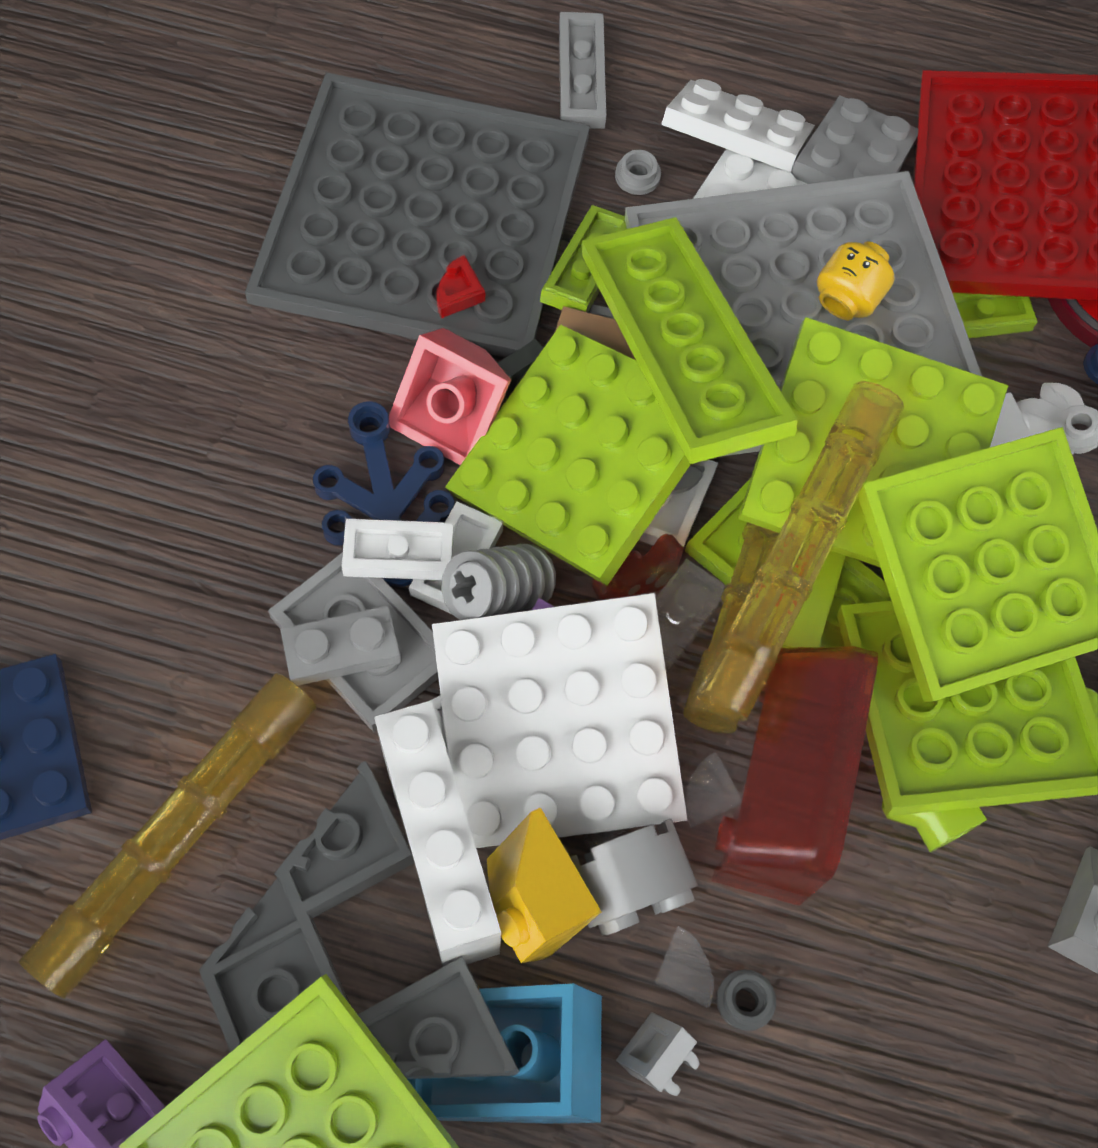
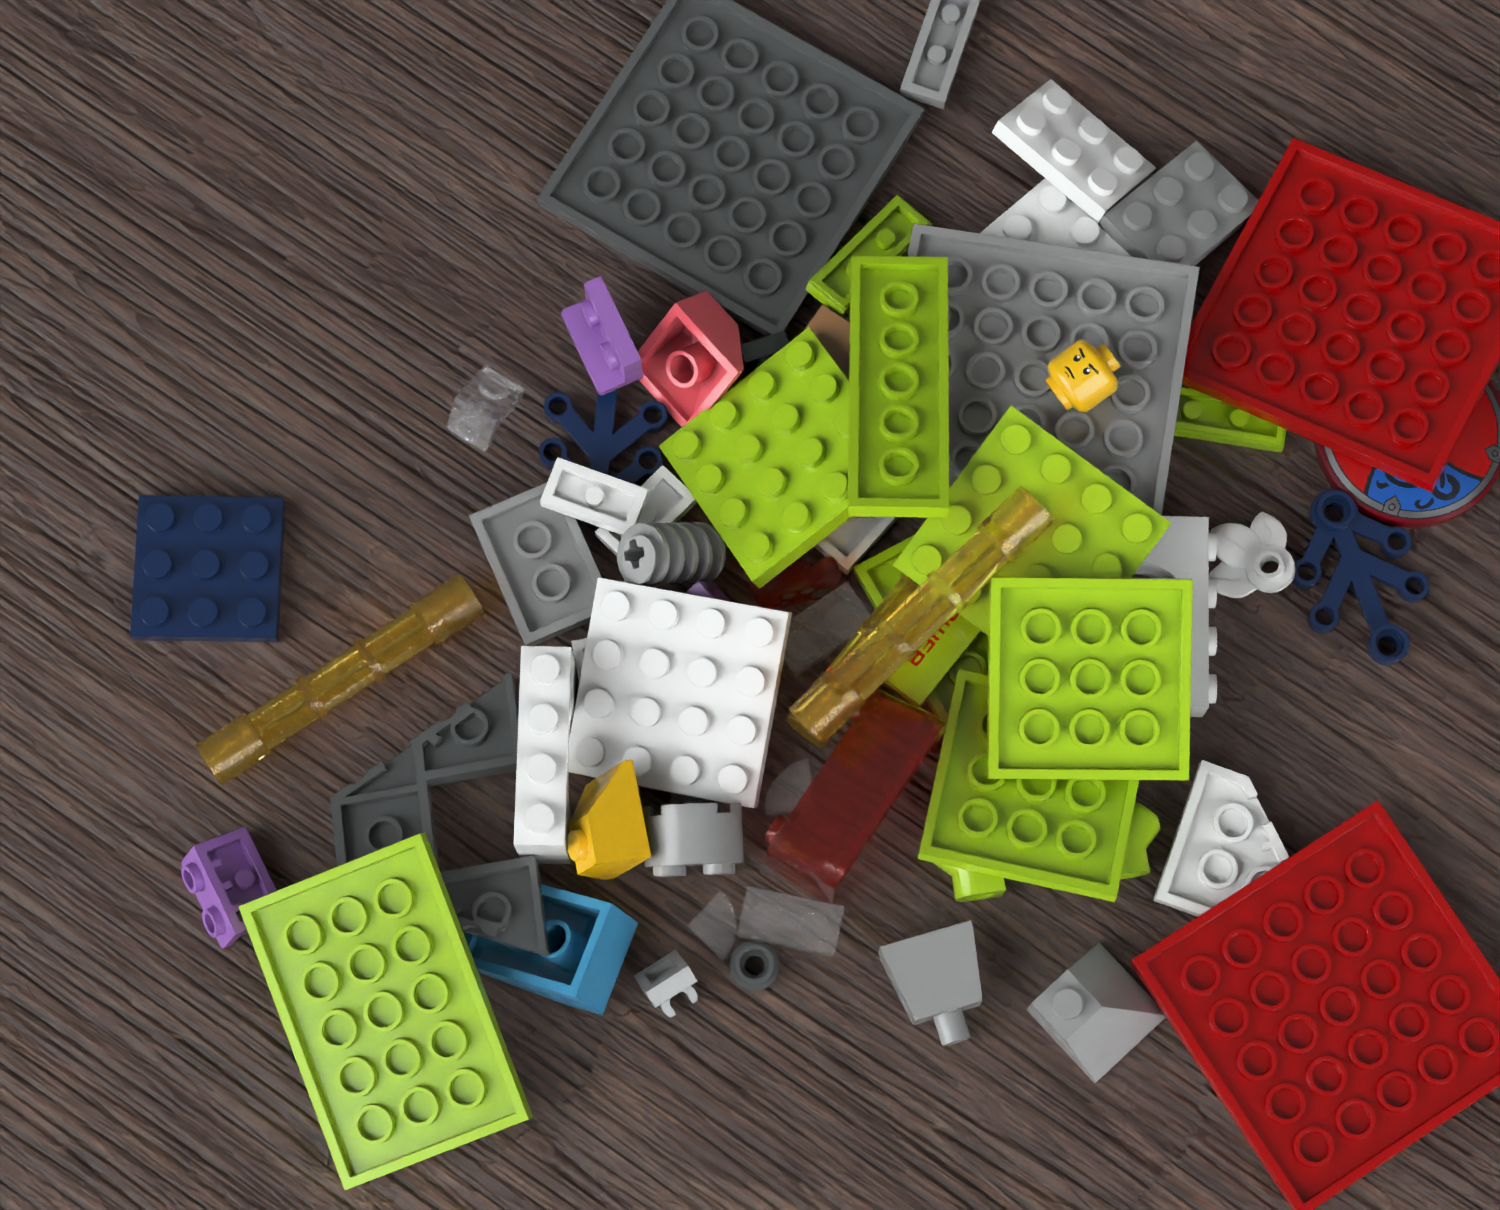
camera: 25 degrees right, 10 degrees up
(249, 501) = (483, 407): none -> clear bracket
(340, 645) = (519, 567): light grey plate -> none
(357, 391) = (602, 339): none -> medium lavender bracket
(458, 288) = (733, 254): red tile -> none
(638, 172) = (956, 159): light grey plate -> none
(767, 935) = (790, 921): none -> clear plate
(951, 945) = (936, 978): none -> light grey torso

